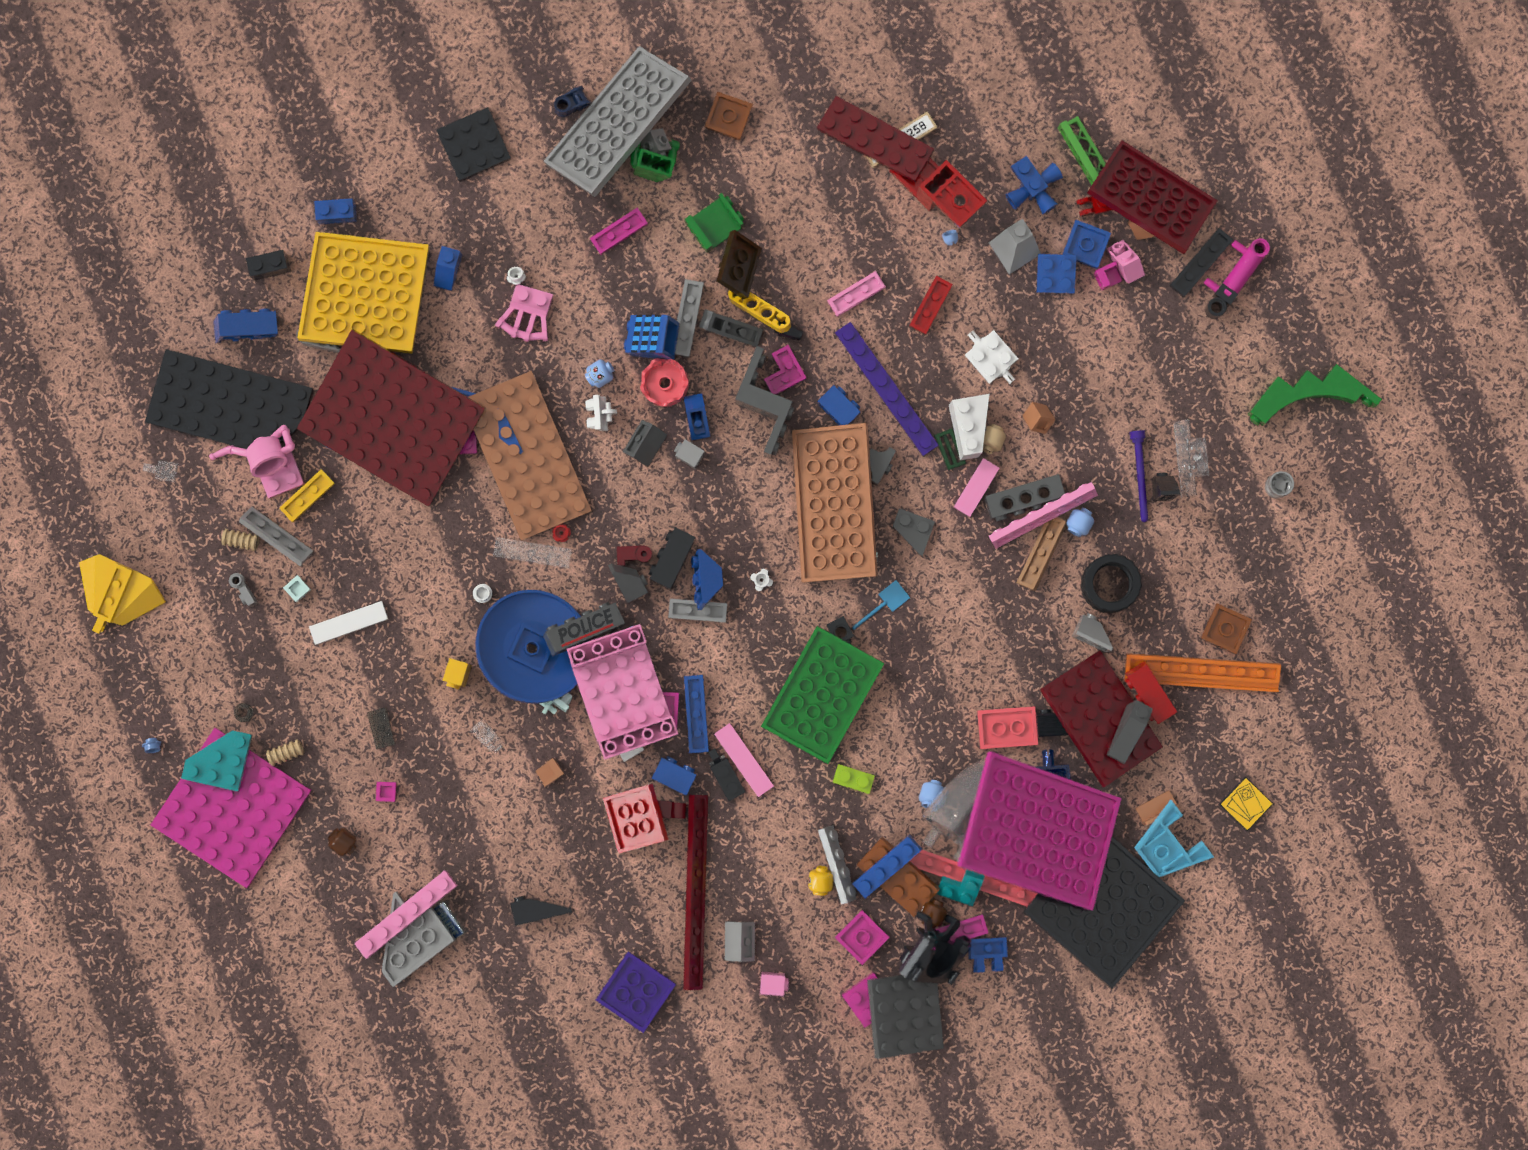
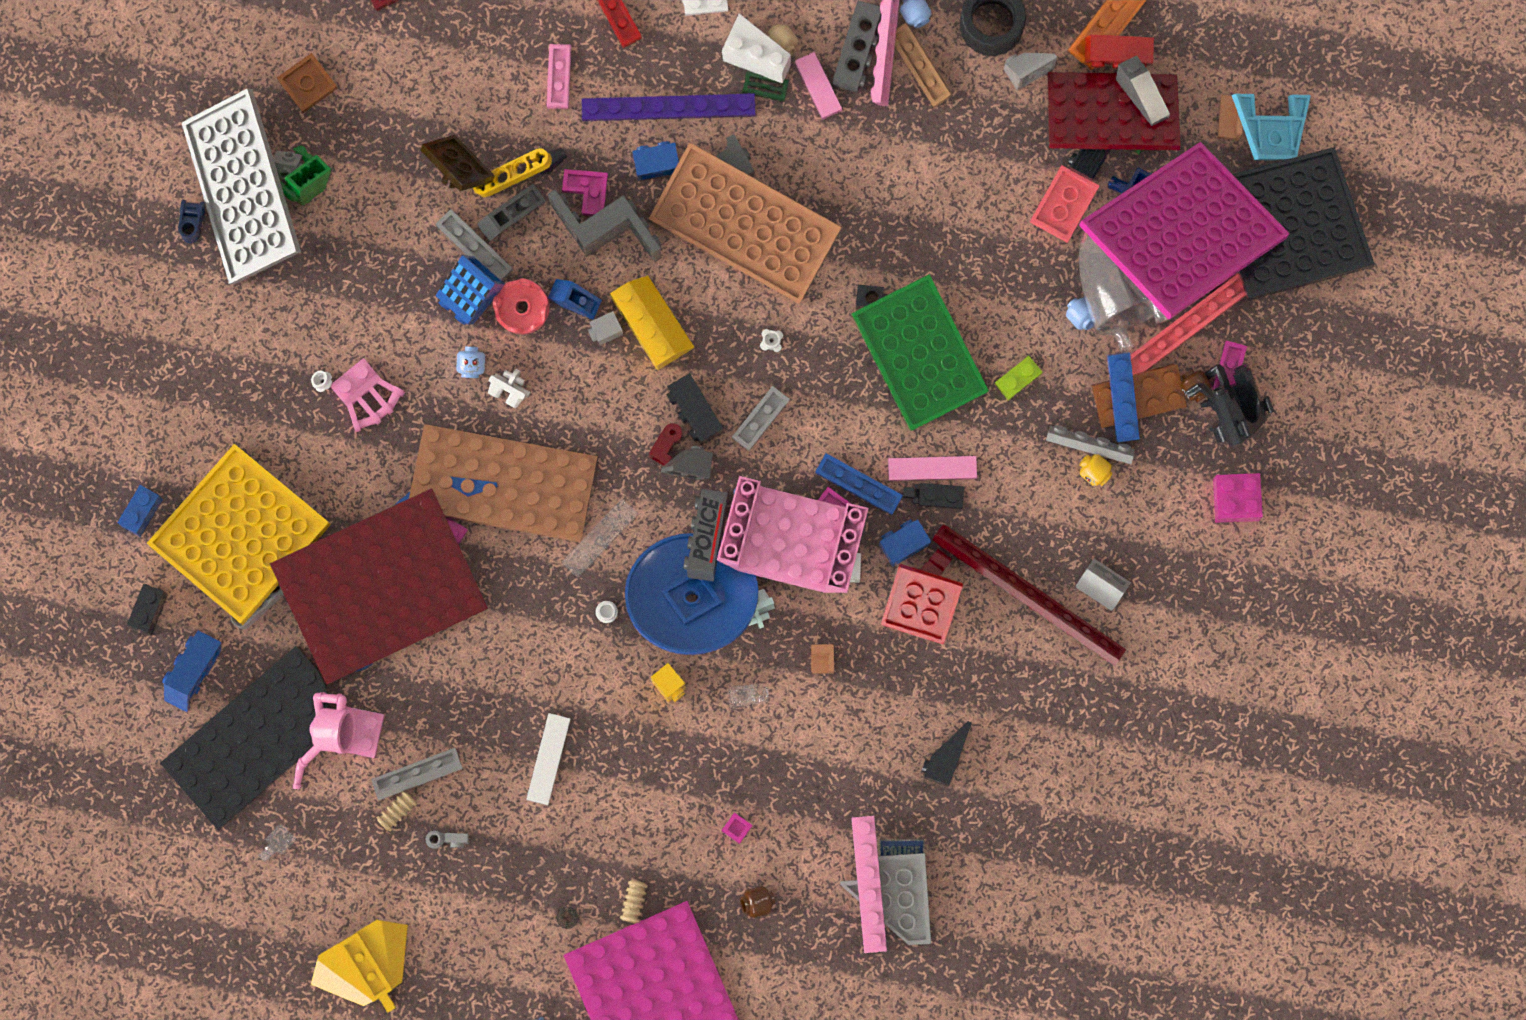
camera: 55 degrees left, 5 degrees down
(220, 762) = (601, 969): teal plate -> none
(297, 588) = (481, 786): light aqua plate -> none
(307, 495) = (397, 718): yellow plate -> none
(381, 728) = (672, 793): clear smoke plate -> none
(447, 268) = (269, 440): blue slope -> none
(473, 144) = (166, 339): black plate -> none
(556, 533) = (600, 493): red plate -> none
(619, 231) = (346, 256): dark pink plate -> none
(635, 992) = (1087, 714): dark purple plate -> none
(645, 443) = (565, 364): dark grey panel -> none
(706, 578) = (735, 388): blue slope -> none
(714, 223) = (400, 161): green panel -> none
(717, 483) = (651, 321): none -> yellow slope
(773, 983) = (1165, 576): bright pink brick -> none
(862, 937) = (1174, 467): dark pink plate -> none
(892, 596) = (870, 229): dark azure piece -> none
(904, 1016) = (1275, 472): dark grey plate -> none
(913, 529) = (819, 168): dark grey wing -> none
(963, 891) = (1193, 342): teal plate -> none
(988, 948) = (1262, 355): blue plate -> none
(1246, 804) = (1280, 34): yellow tile -> none

